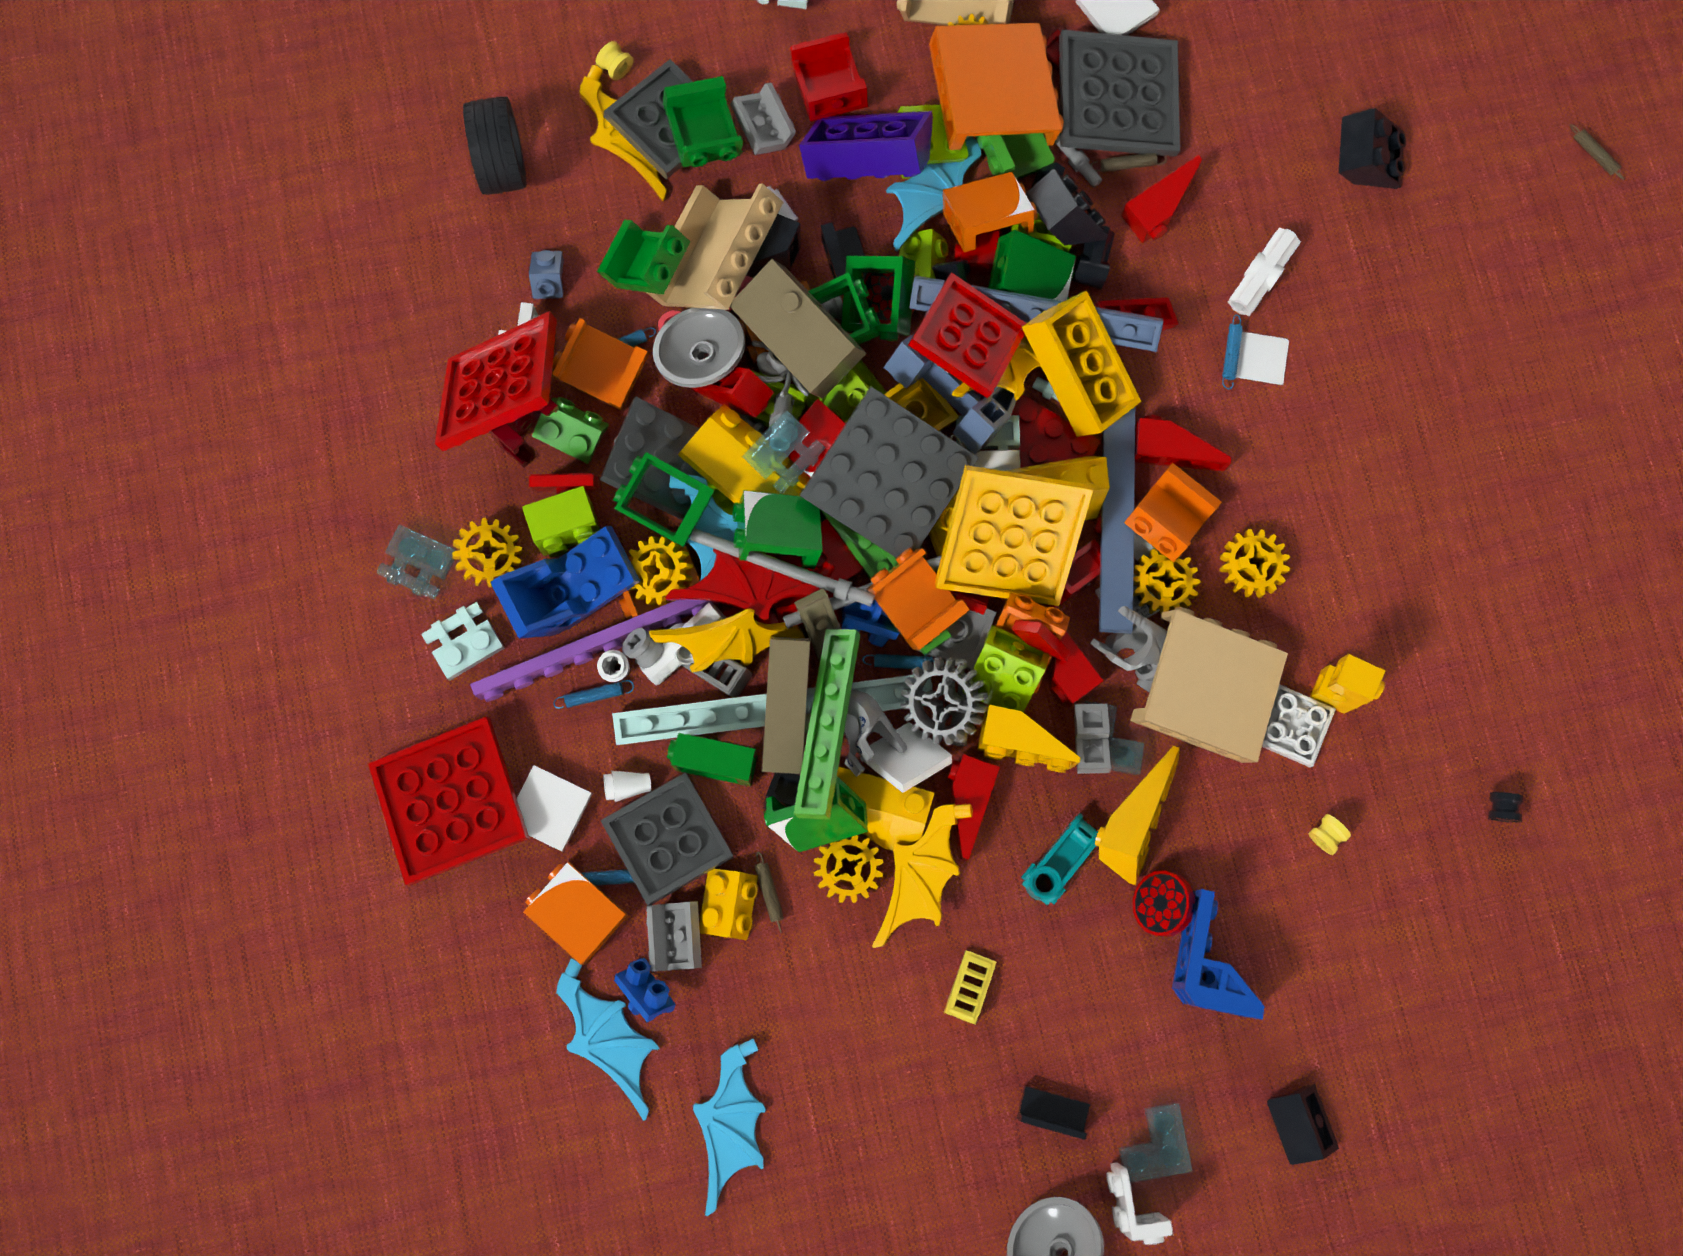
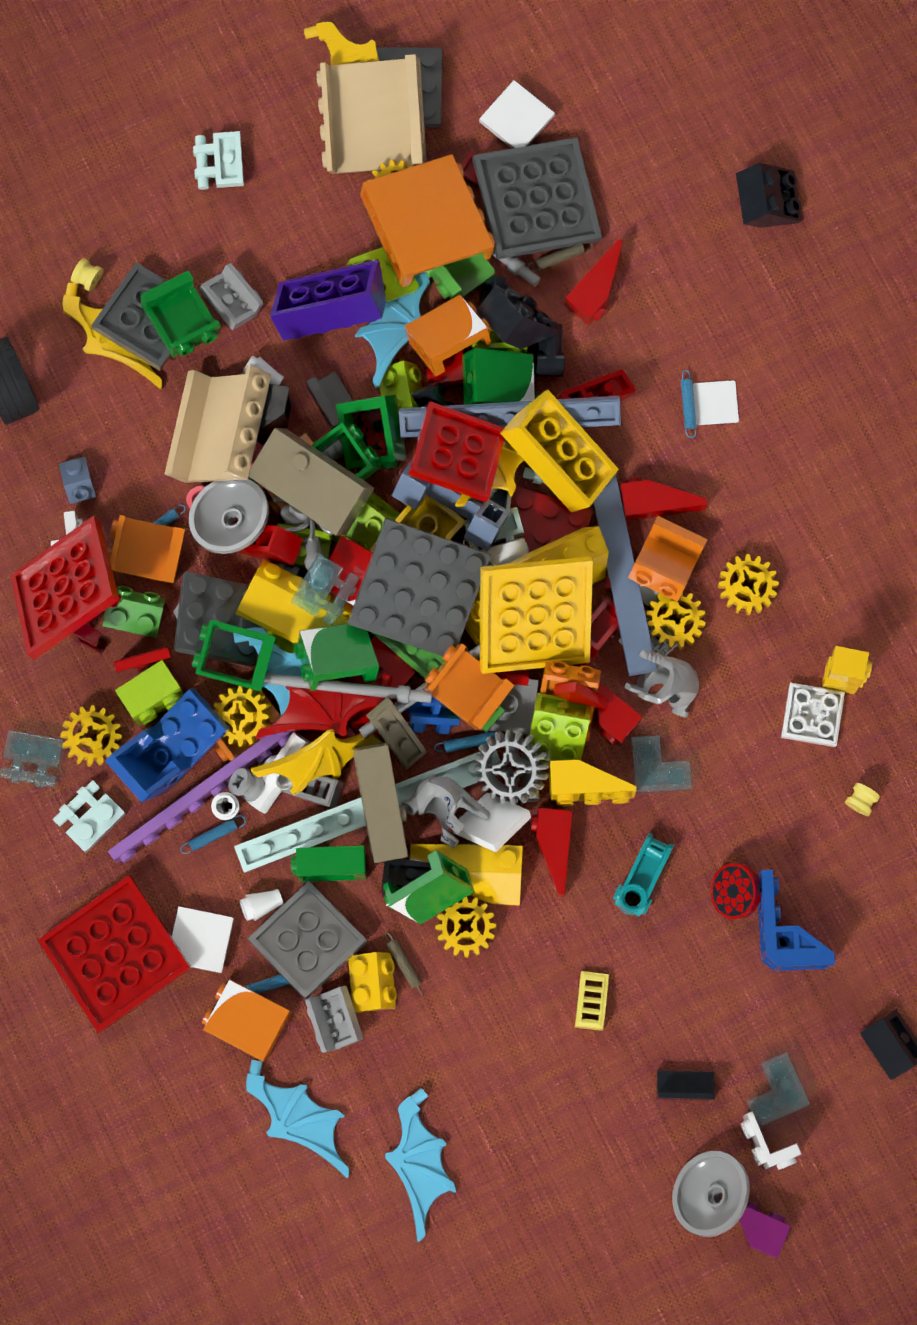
camera: 10 degrees left, 0 degrees up
(643, 258) = (159, 447): green panel -> none
(644, 992) = (323, 1072): blue hips -> none
(827, 724) = (419, 809): bright green plate -> none
(828, 76) = (278, 244): red panel -> none
(923, 872) = (529, 915): yellow animal -> none
(1092, 738) = (644, 767): light grey slope -> none
(1127, 833) = (691, 840): yellow wedge -> none
(1213, 687) = (735, 699): tan panel -> none
(1264, 271) = (699, 327): white piece -> none

